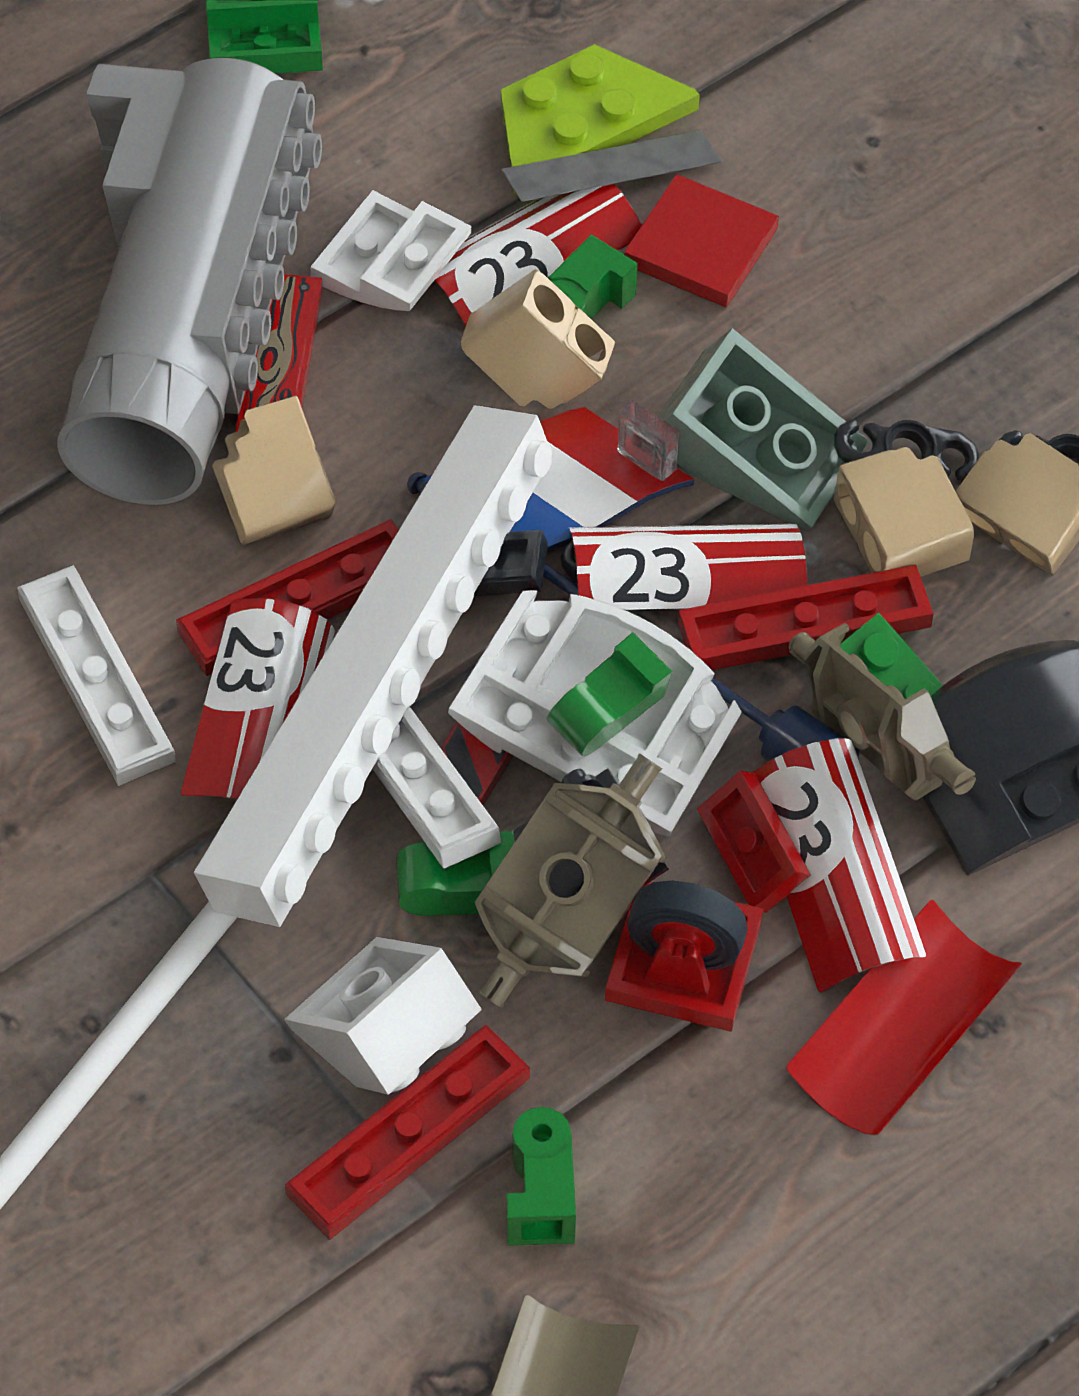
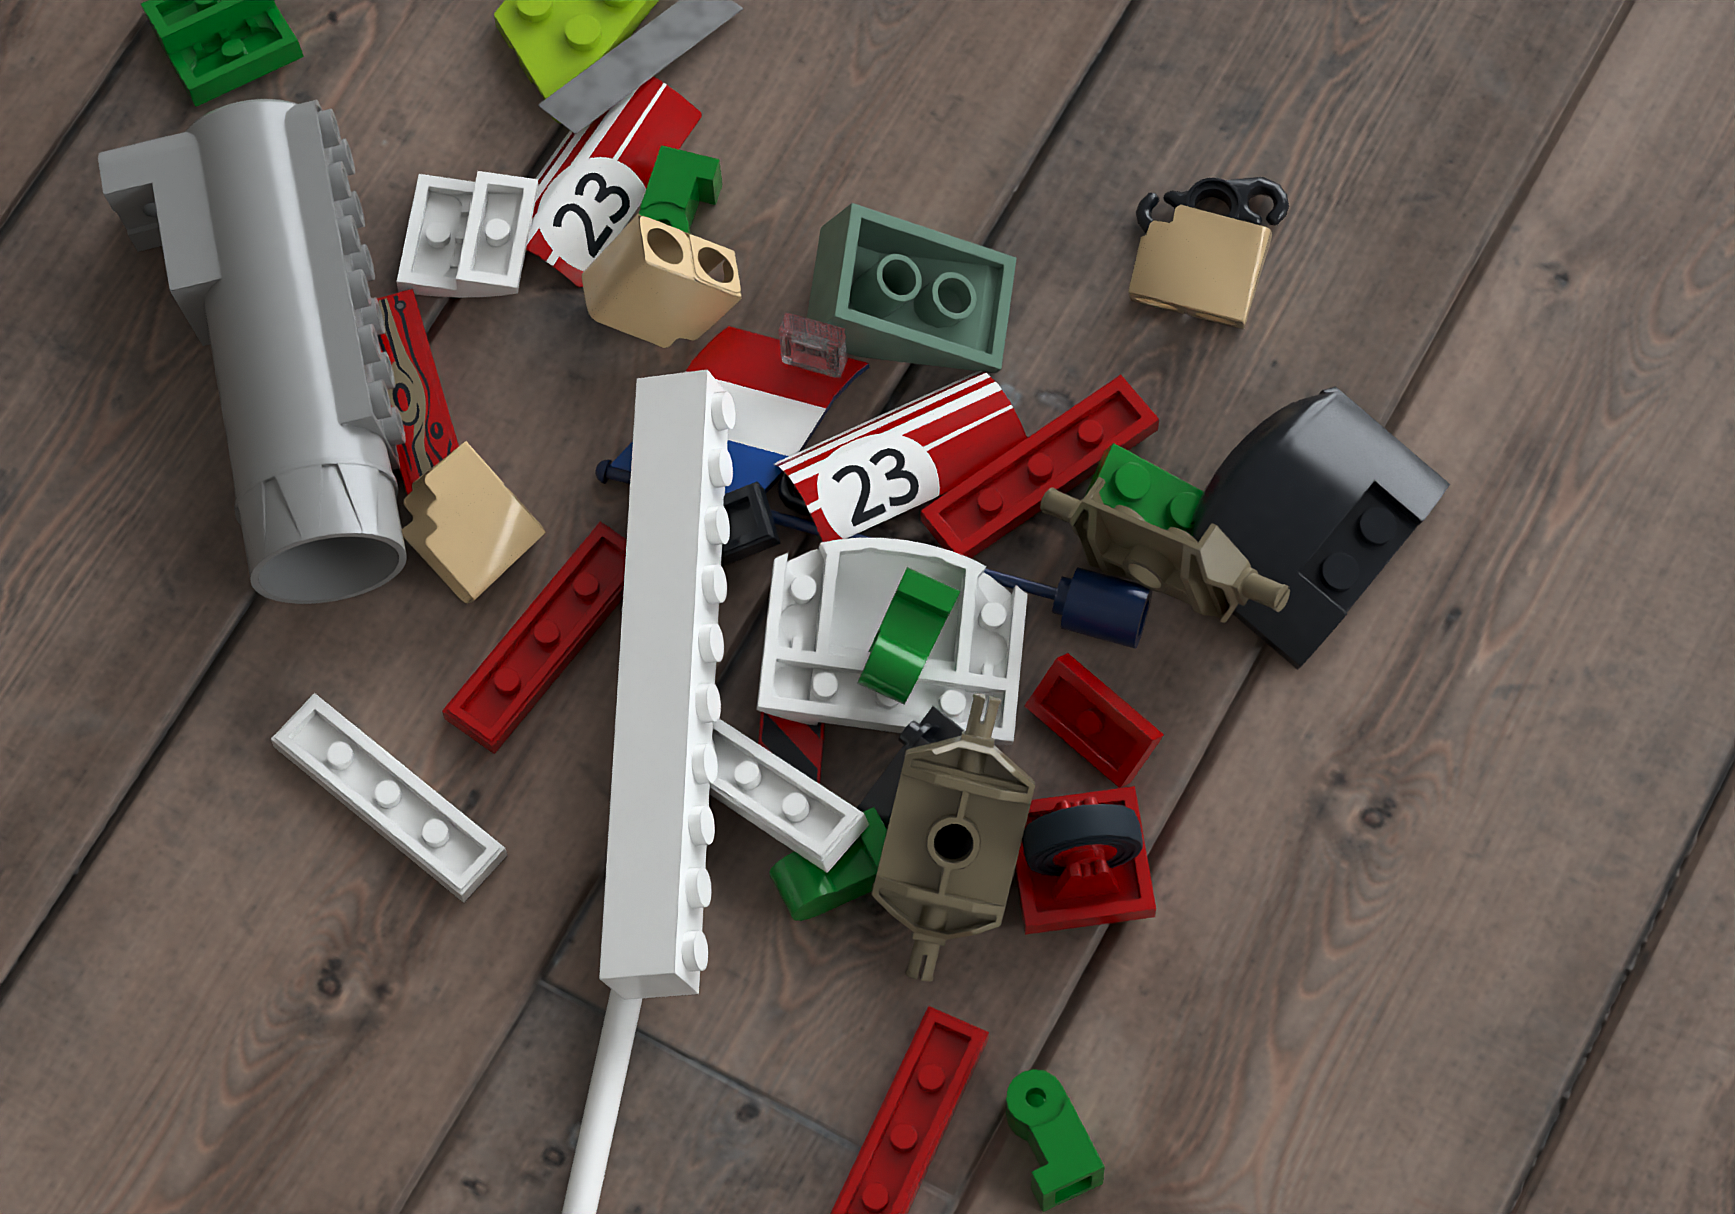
camera: 20 degrees left, 10 degrees up
(256, 680) = (557, 761): sticker -> none
(386, 1013) = (831, 1035): white slope -> none
(701, 240) = (761, 103): red tile -> none
(853, 902) = (1212, 745): sticker -> none
(899, 1025) = (1305, 844): red sticker -> none
(903, 512) = (1085, 325): tan piece -> none
(929, 440) = (1039, 272): black piece -> none

